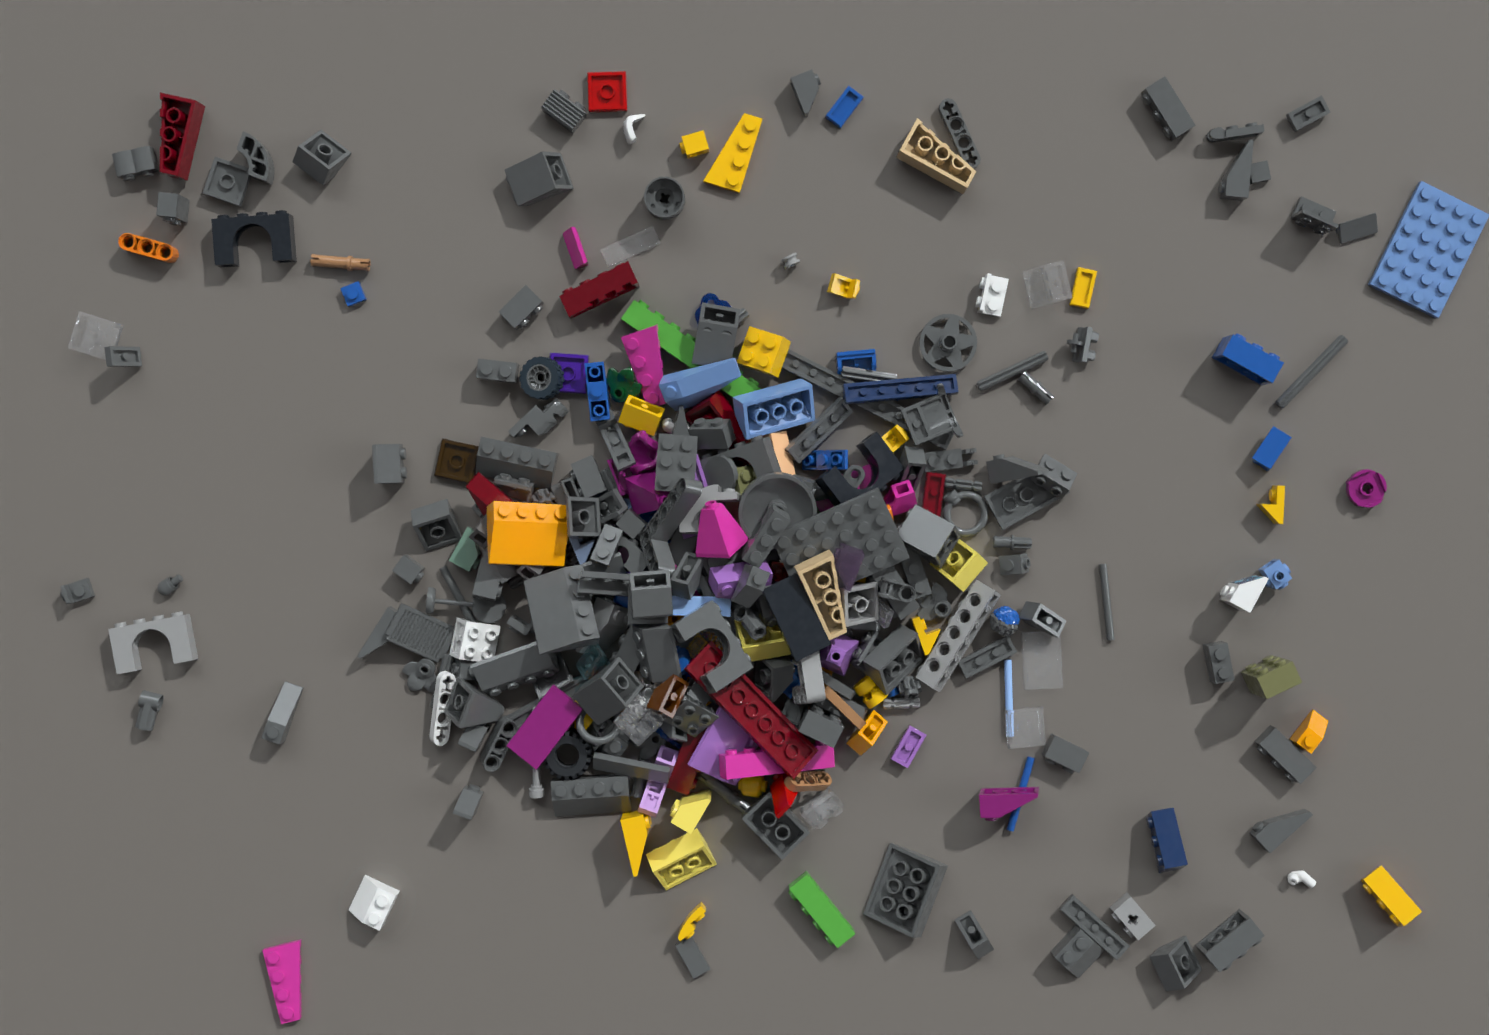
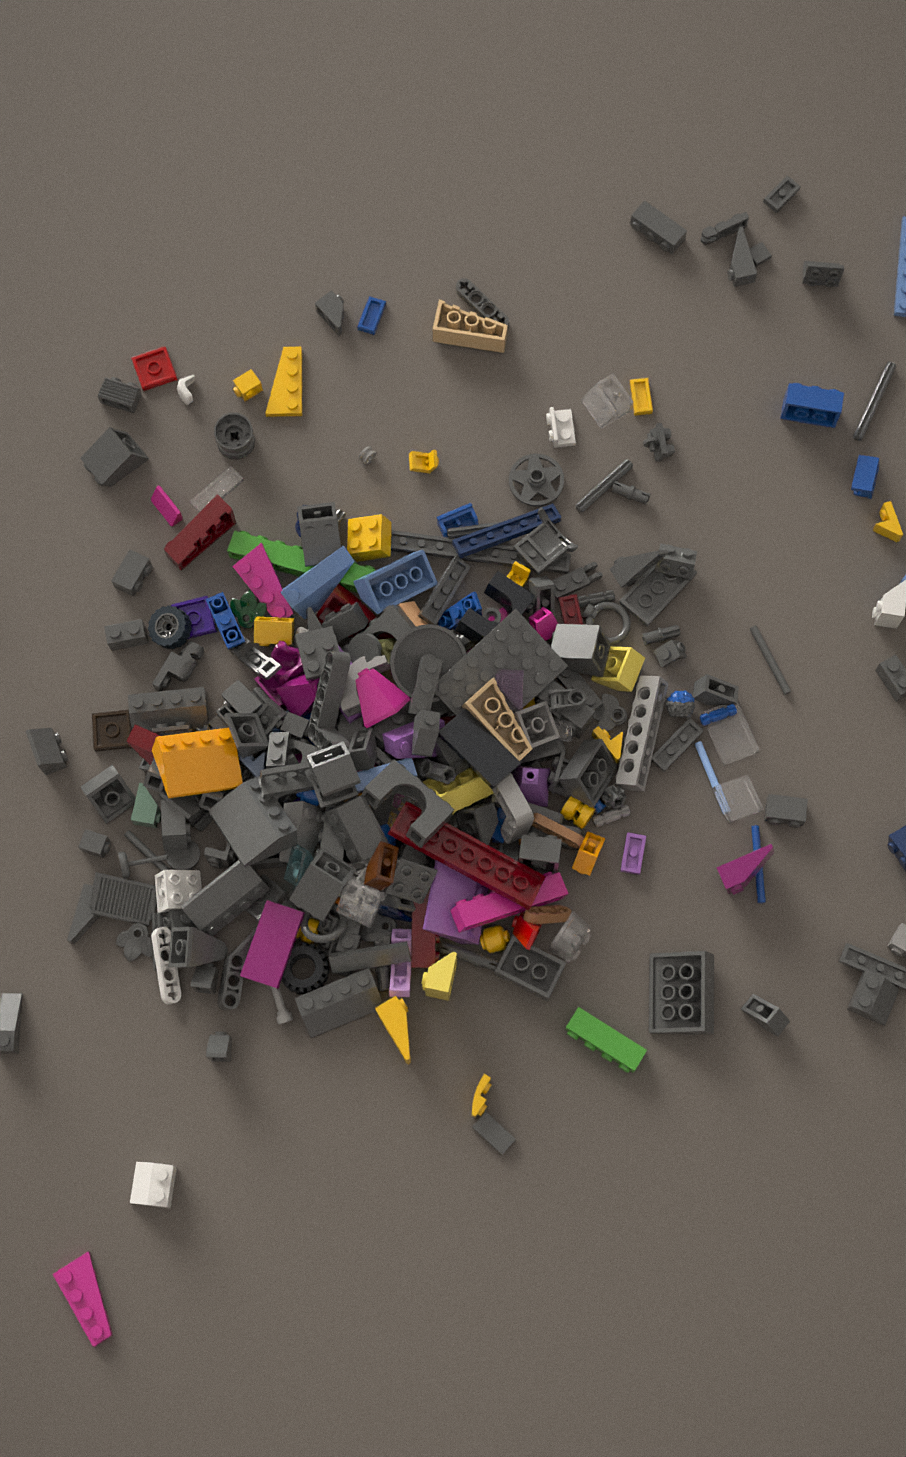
camera: 15 degrees left, 15 degrees down
(681, 859) = (449, 1036): light yellow slope -> none
(1049, 641) = (718, 714): none -> blue axle
(1357, 228) = (863, 271): dark grey slope -> none

